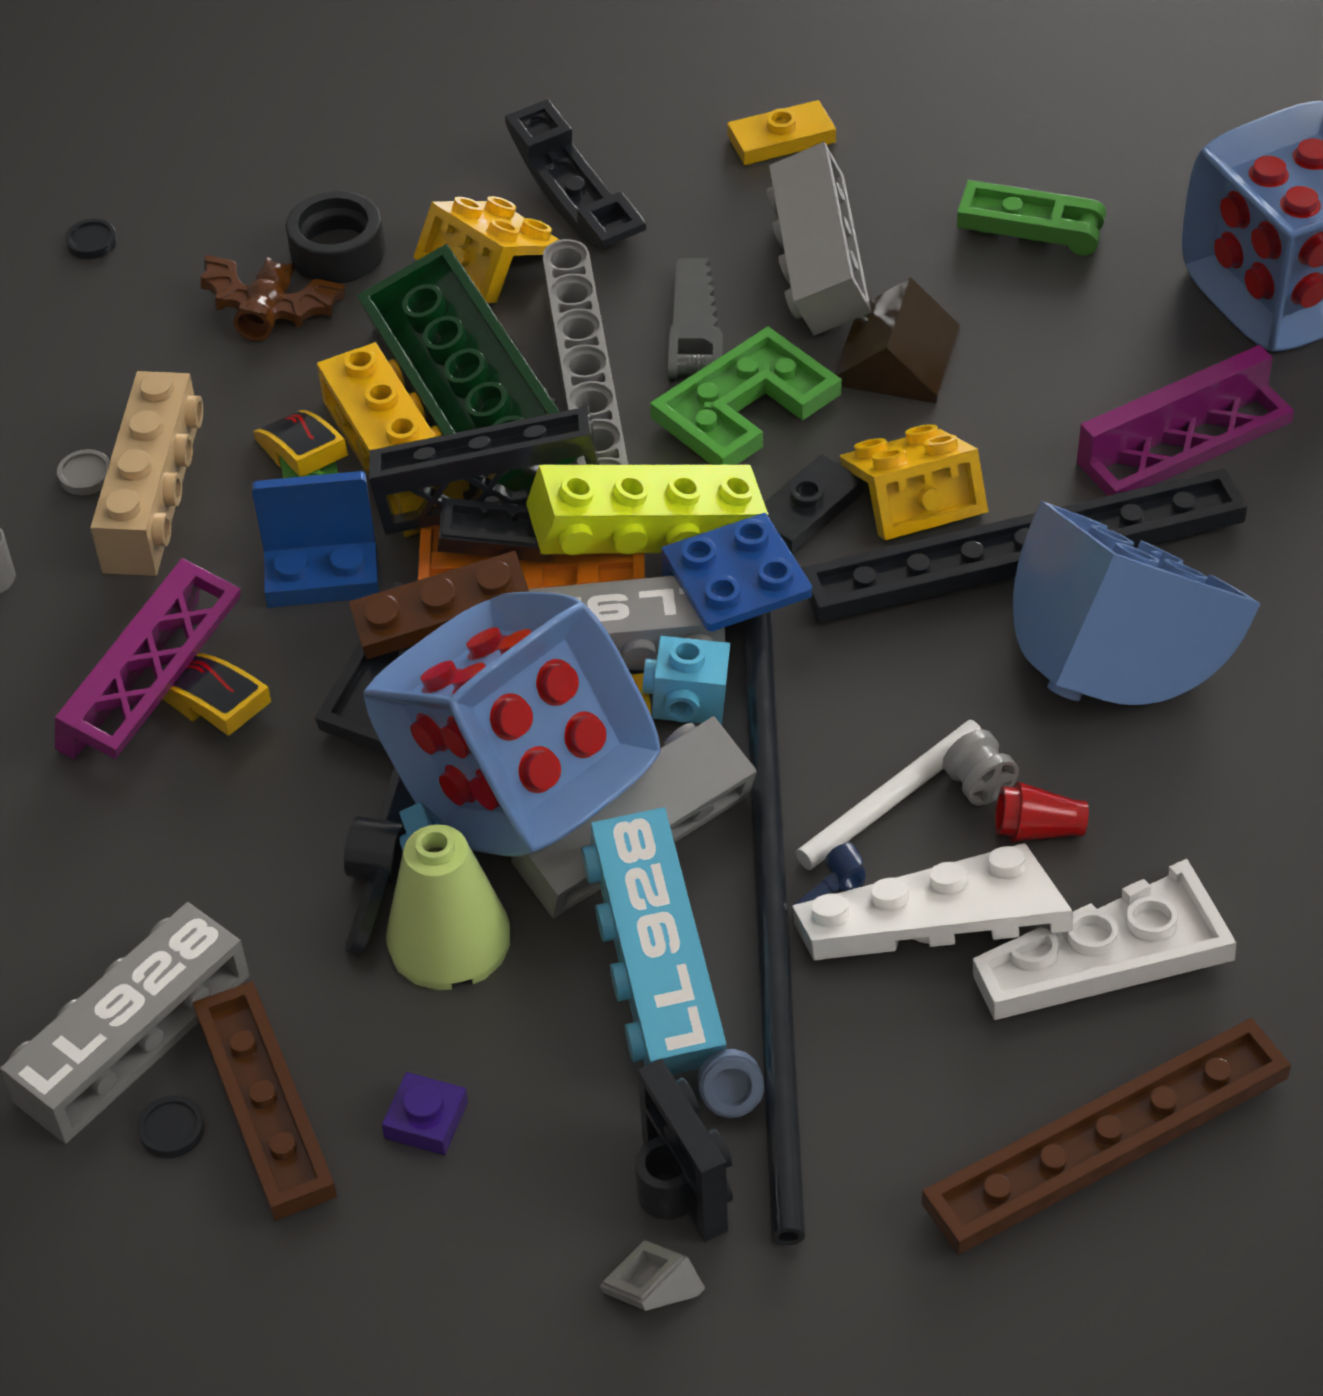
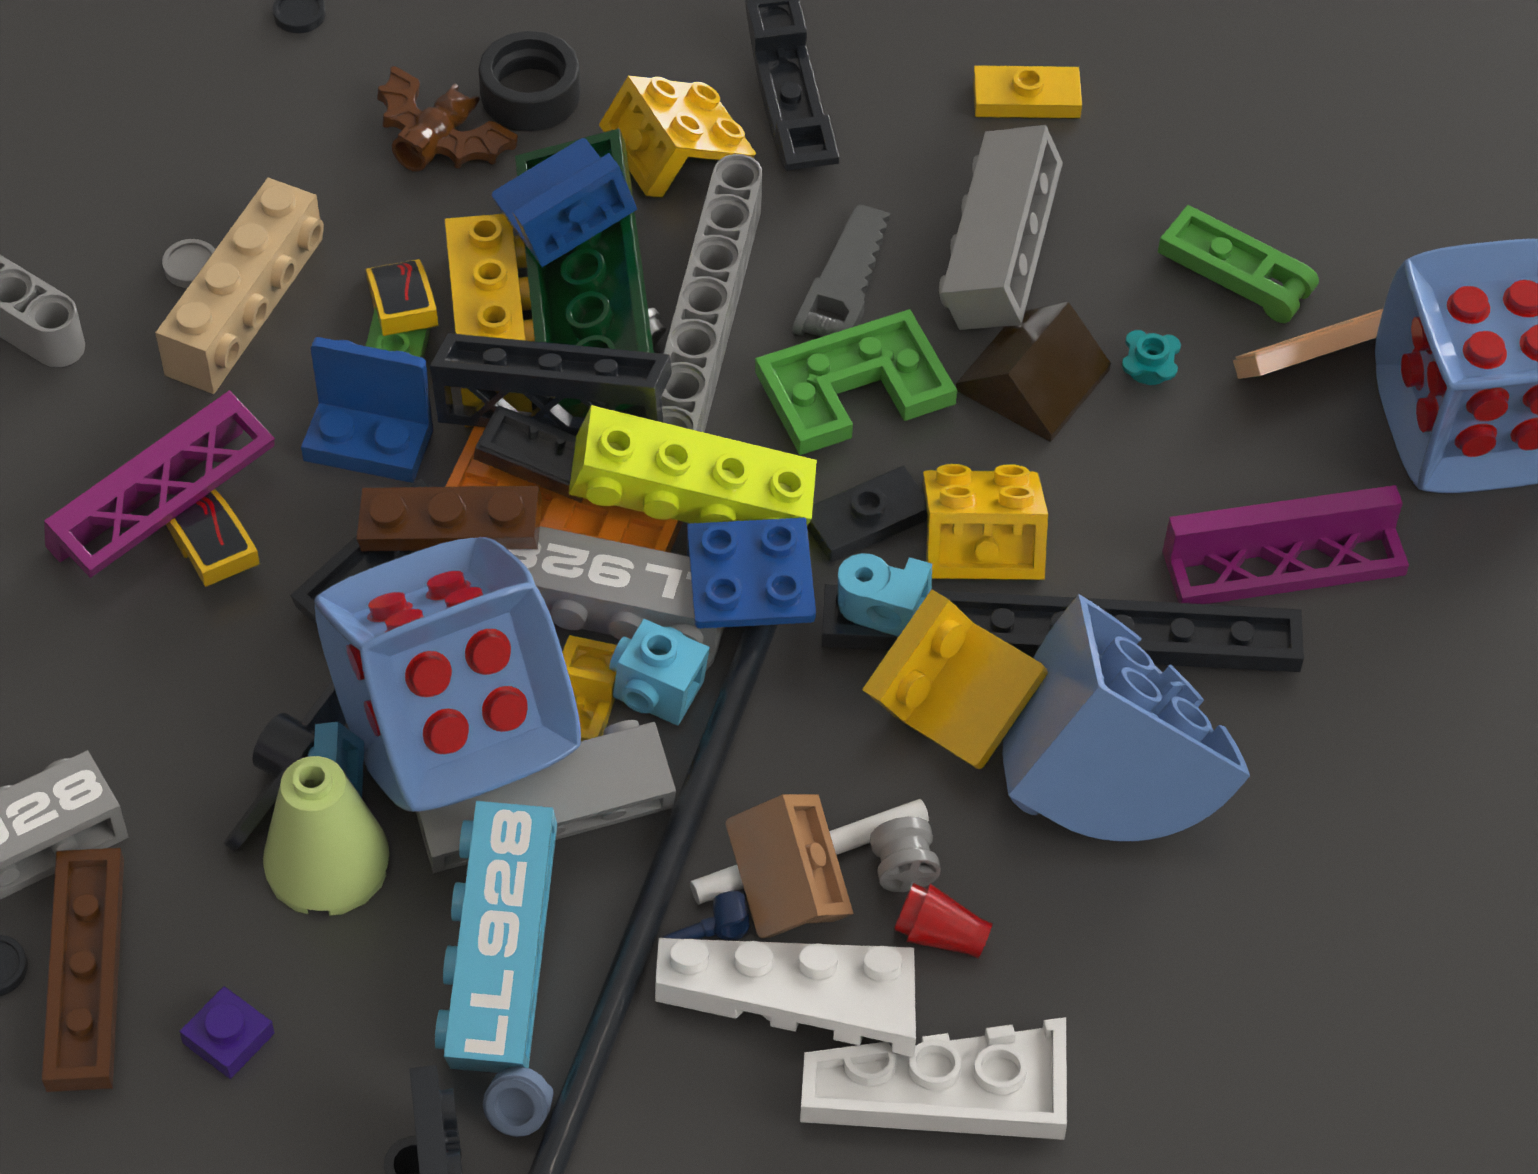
camera: 15 degrees right, 5 degrees up
(428, 311) = (565, 200): none -> blue bracket
(862, 556) = (882, 594): none -> medium azure leg
(881, 806) = (788, 864): none -> medium nougat panel
(961, 610) = (955, 681): none -> yellow bracket
(993, 310) = (1151, 357): none -> teal plate
(1126, 261) = (1308, 346): none -> light nougat tile

